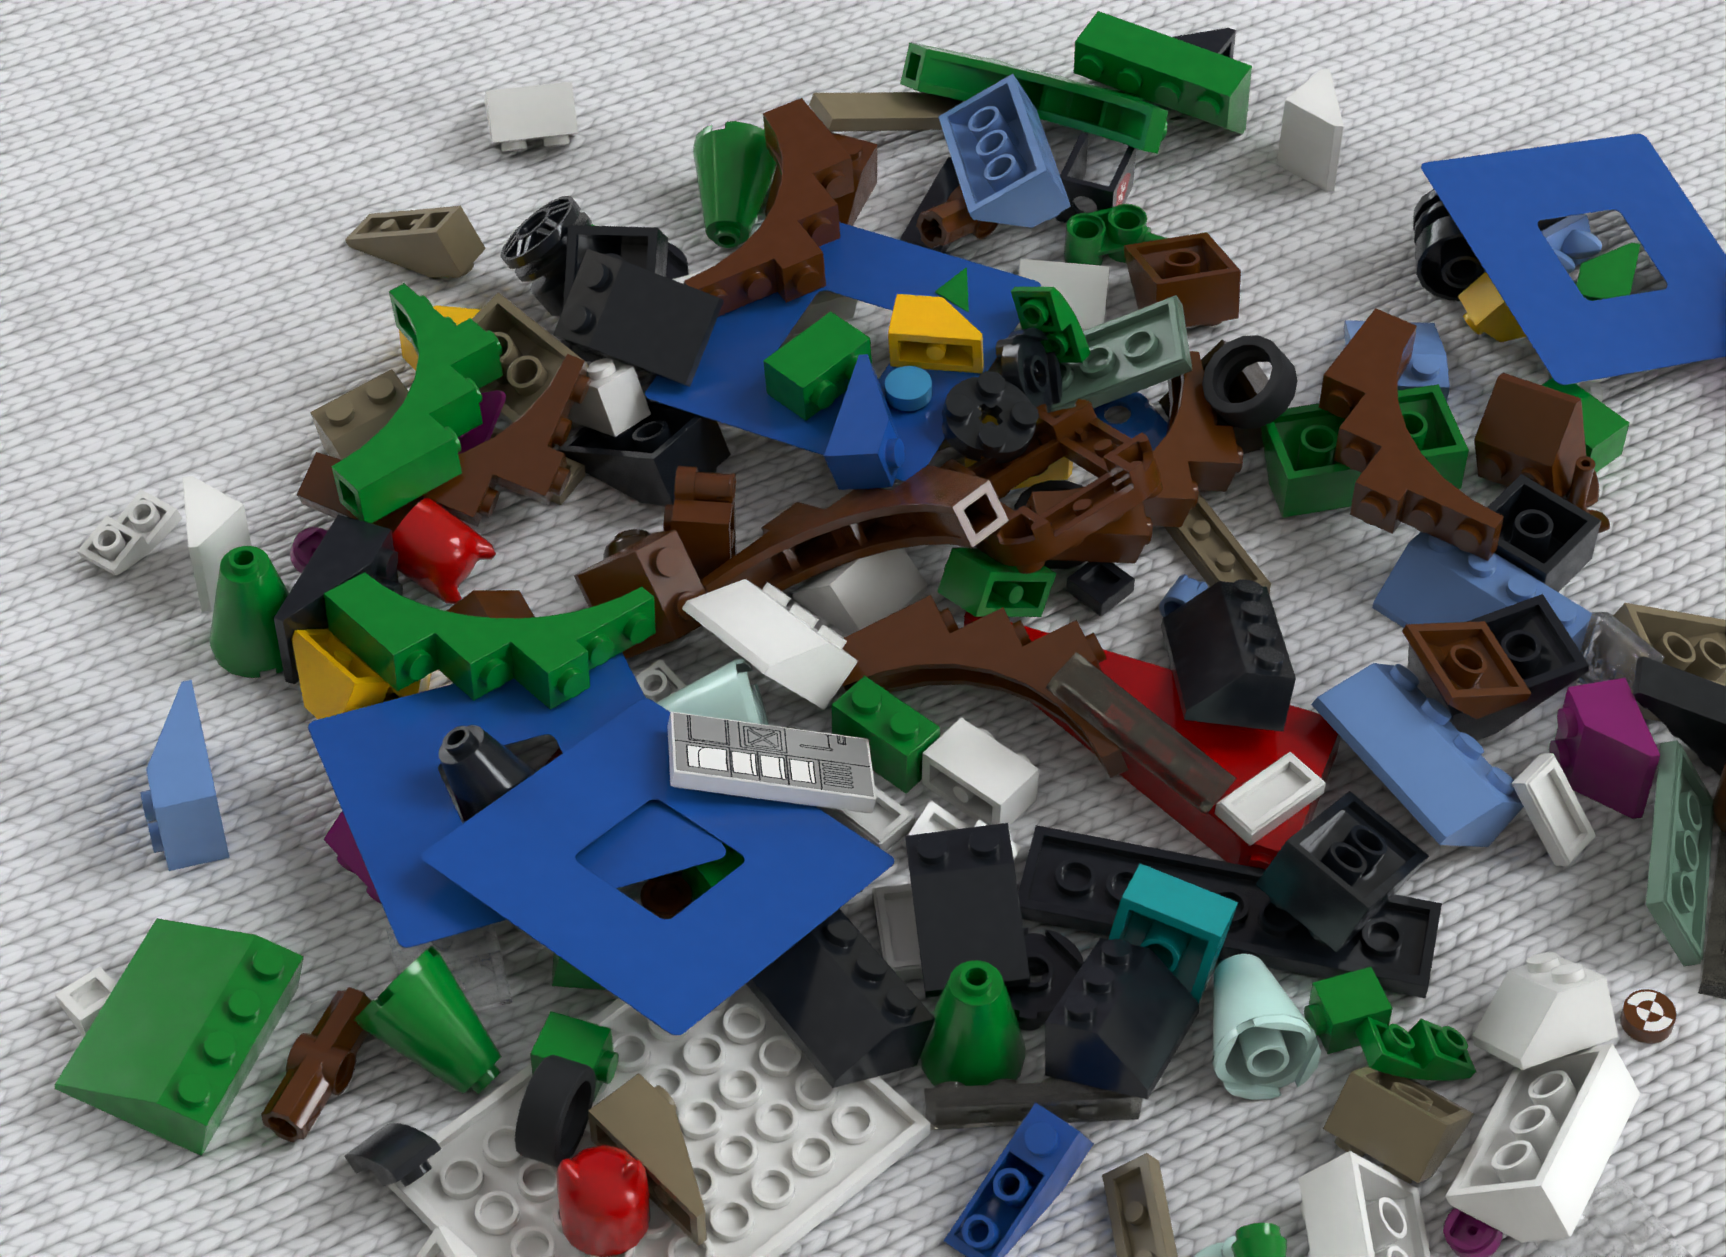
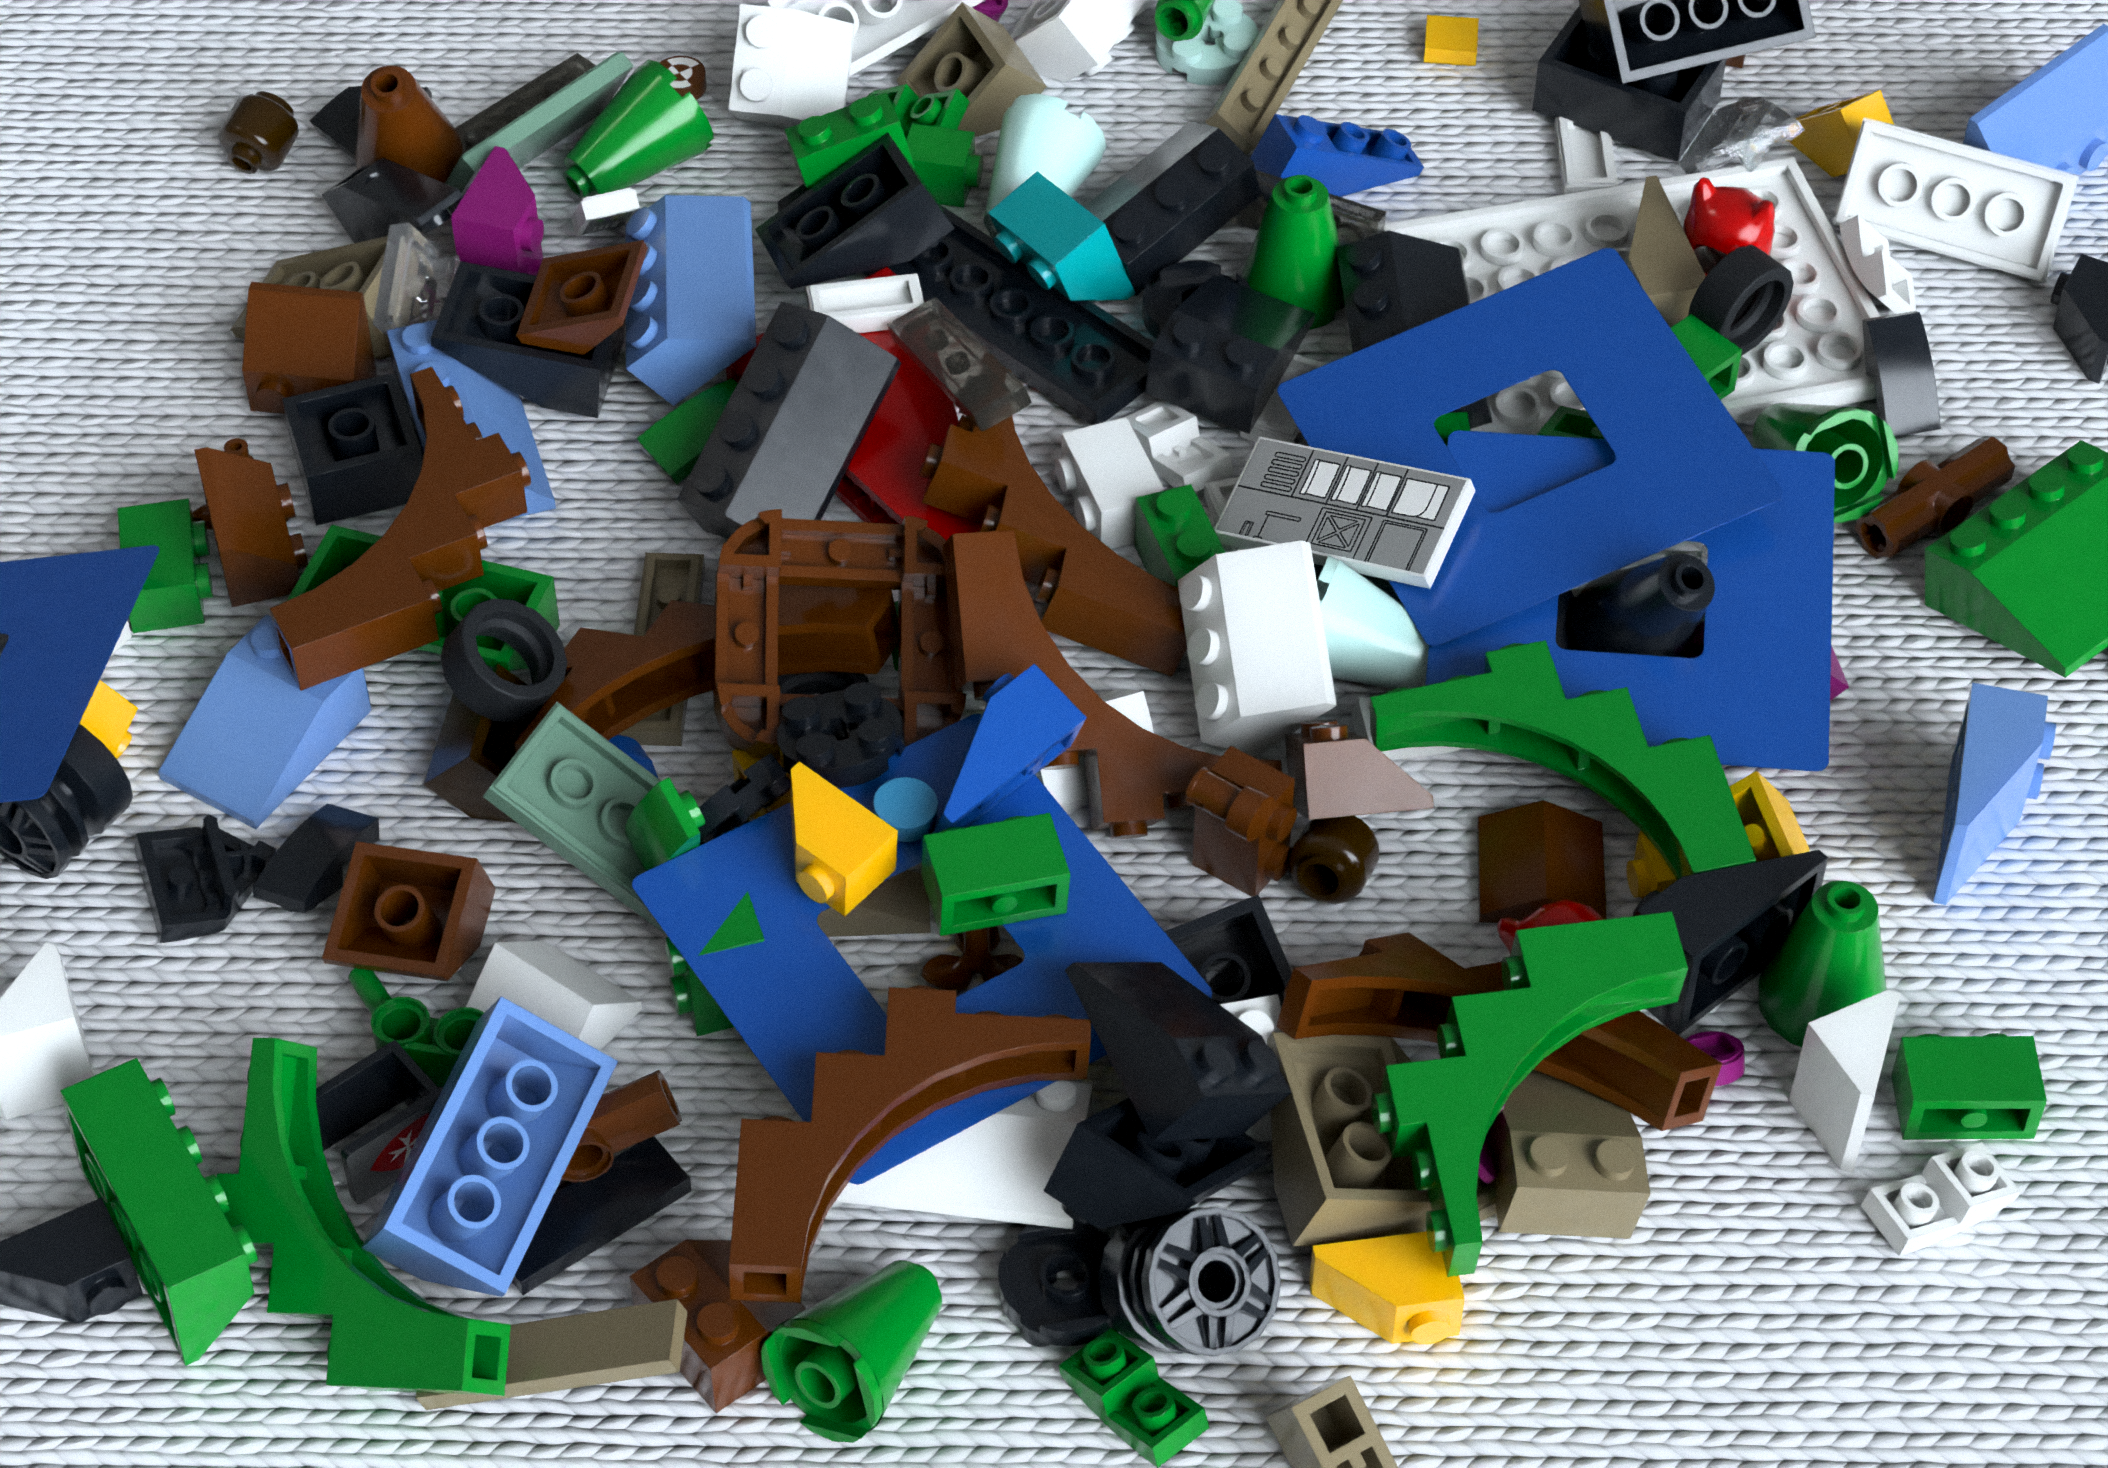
camera: 150 degrees left, 0 degrees up
(133, 595) = (1968, 1087): none -> green brick
(1279, 304) = (312, 857): none -> black slope
(1318, 672) = (683, 433): none -> green slope
(1344, 275) = (197, 877): none -> black slope
(1419, 940) = (830, 140): none -> green slope
(1603, 910) = (638, 135): none -> green cone
(1656, 582) = (303, 342): none -> reddish brown slope

